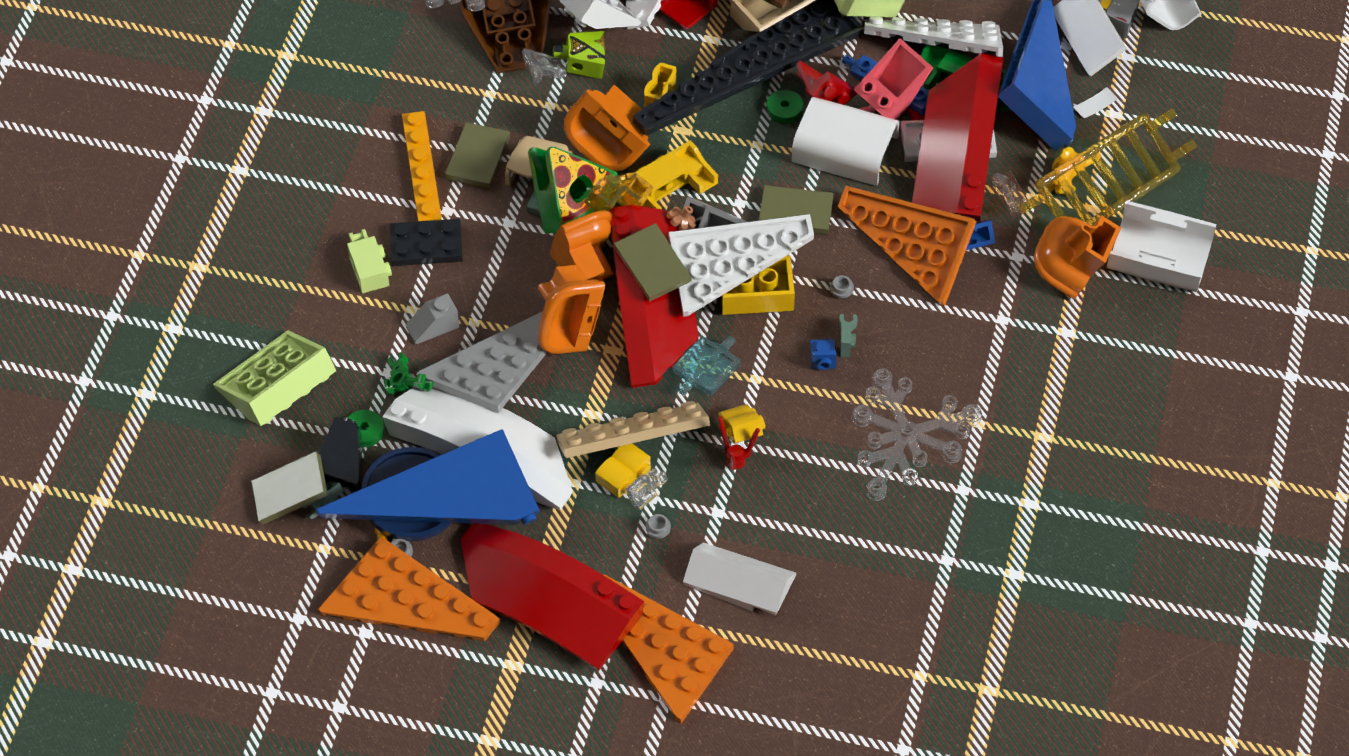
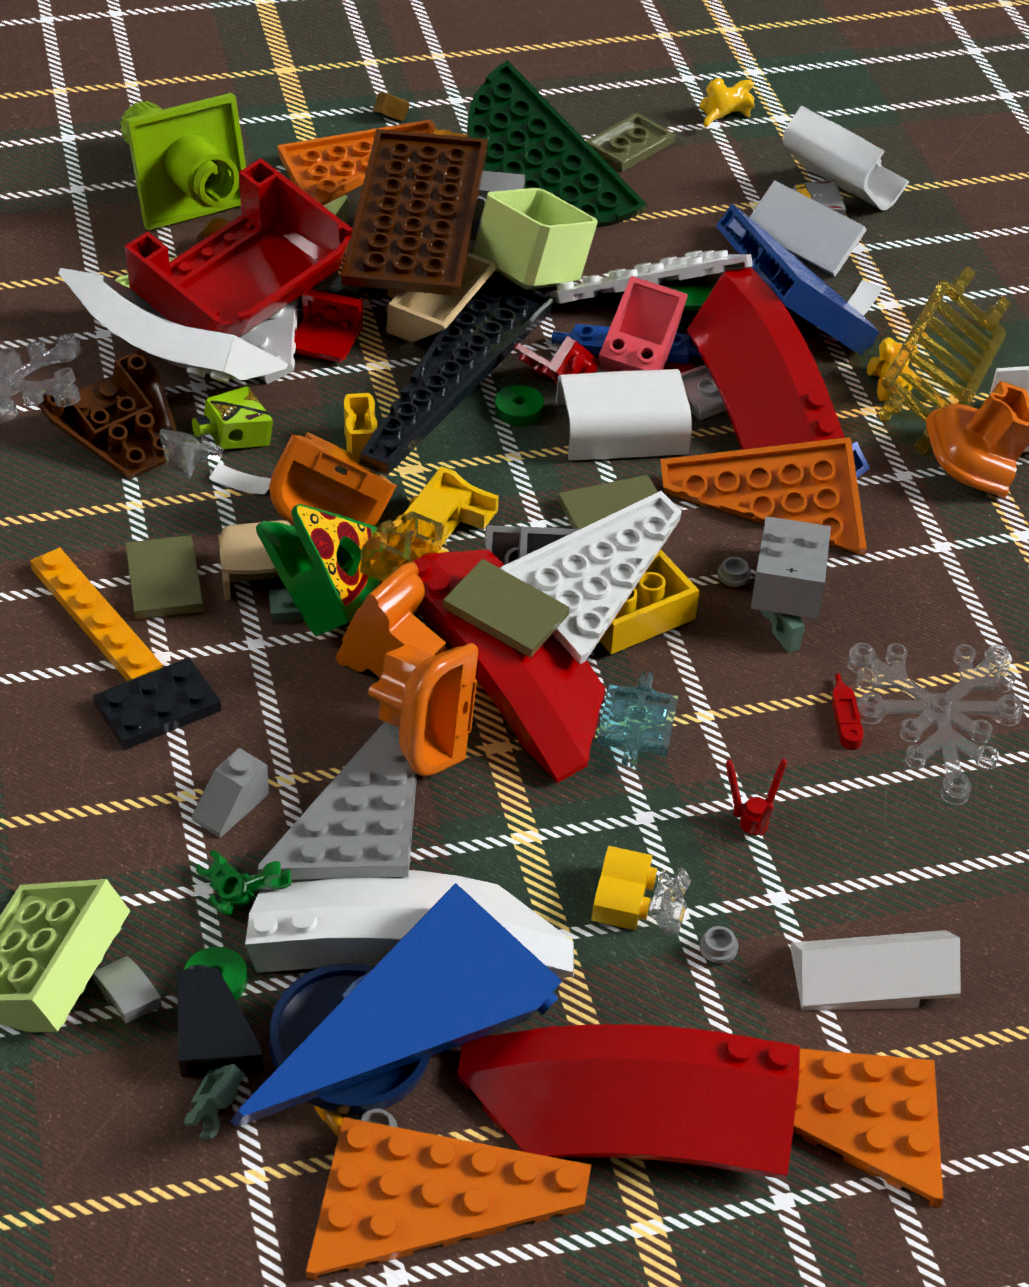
camera: 30 degrees left, 10 degrees down
(289, 488) = (158, 1104): tile -> none
(311, 416) = (127, 989): none -> light grey slope
(368, 262) = (91, 753): yellowish green brick -> none
(562, 96) = (240, 480): none -> white sticker
(631, 430) = (601, 832): tan plate -> none
(682, 218) = (496, 550): nougat plant -> none
(741, 423) = (752, 764): yellow brick -> none
(823, 354) = (769, 655): blue bracket -> none
(844, 413) = (846, 715): none -> red piece
(870, 299) = (791, 567): none -> light grey brick
(1009, 192) = (854, 412): clear hinge -> none

